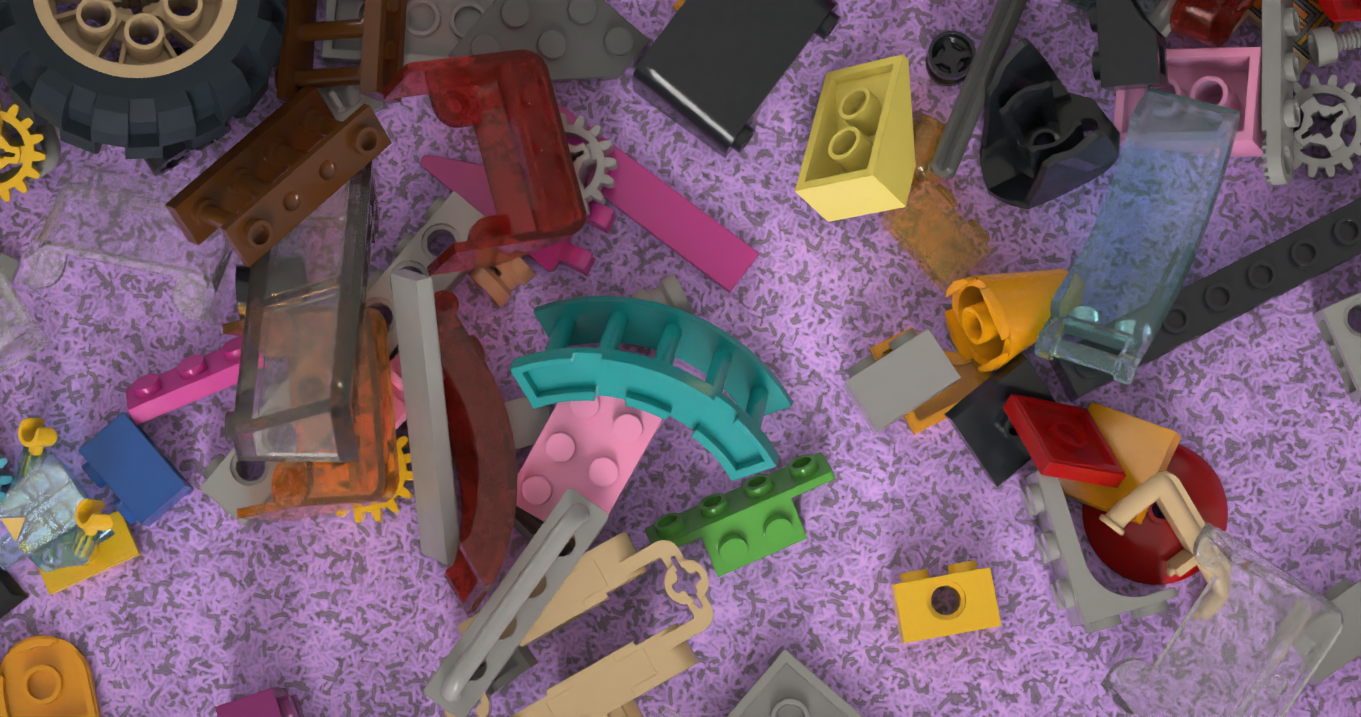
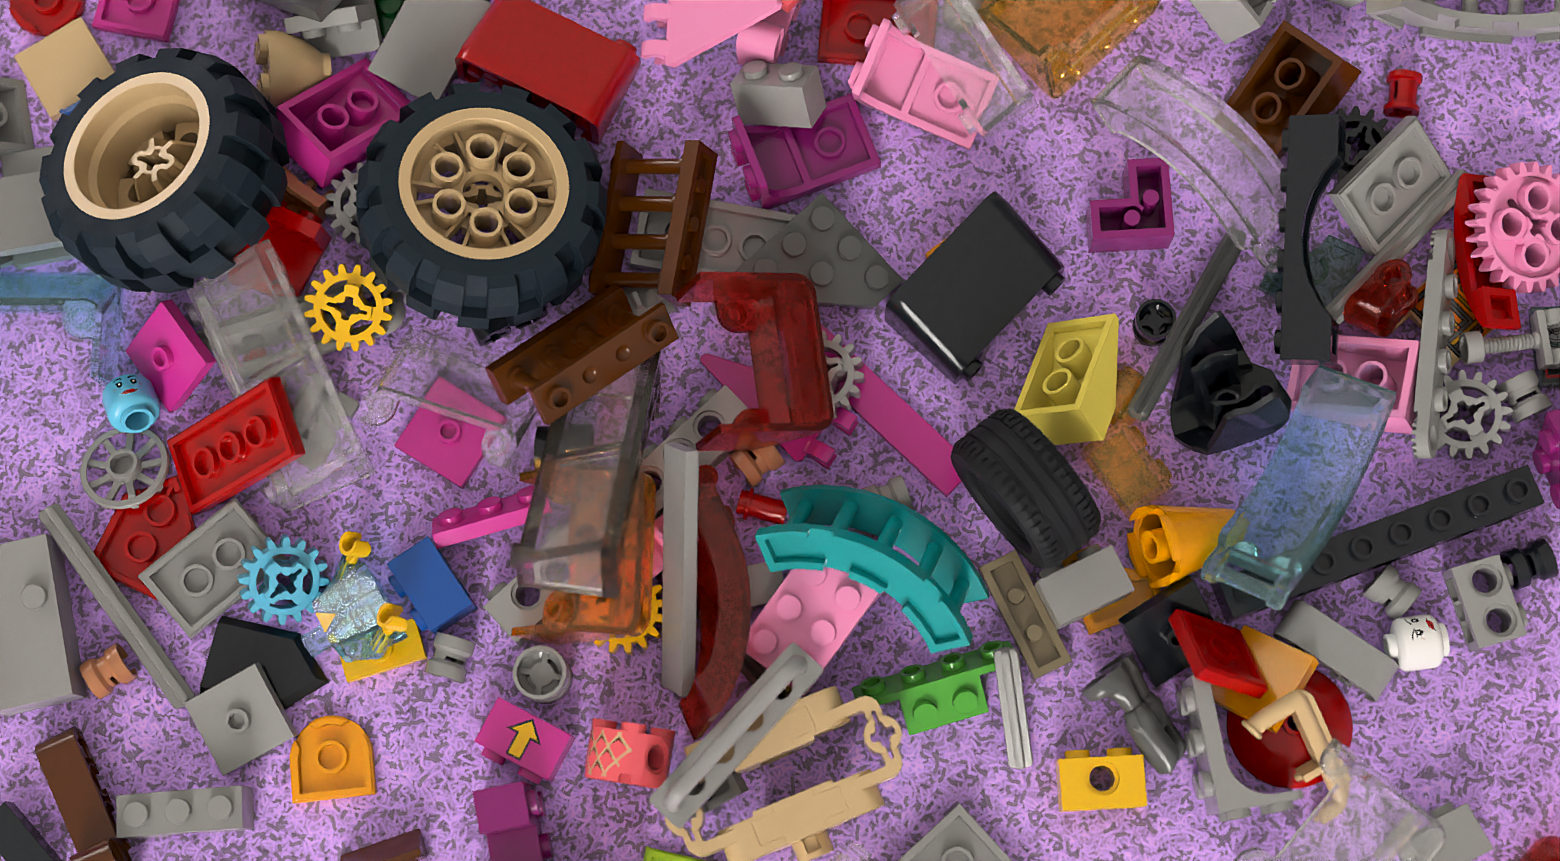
camera: 15 degrees right, 5 degrees down
(127, 301) = (443, 445): none -> dark pink plate
(171, 540) = (453, 648): none -> light grey wheel
(268, 638) = (523, 740): none -> dark pink brick
(280, 558) = (542, 675): none -> light grey wheel
(393, 639) = (628, 753): none -> coral brick
(513, 330) = (761, 507): none -> red pin
(821, 274) = (1026, 488): none -> black tyre
(834, 531) = (1013, 707): none -> light grey axle
(836, 420) = (1024, 615): none -> dark tan plate
(985, 516) = (1144, 712): none -> dark grey piece
(1201, 417) = (1337, 648): none -> light grey beam
(1257, 344) = (1392, 592): none -> light grey wheel
(1291, 399) = (1417, 642): none -> white head

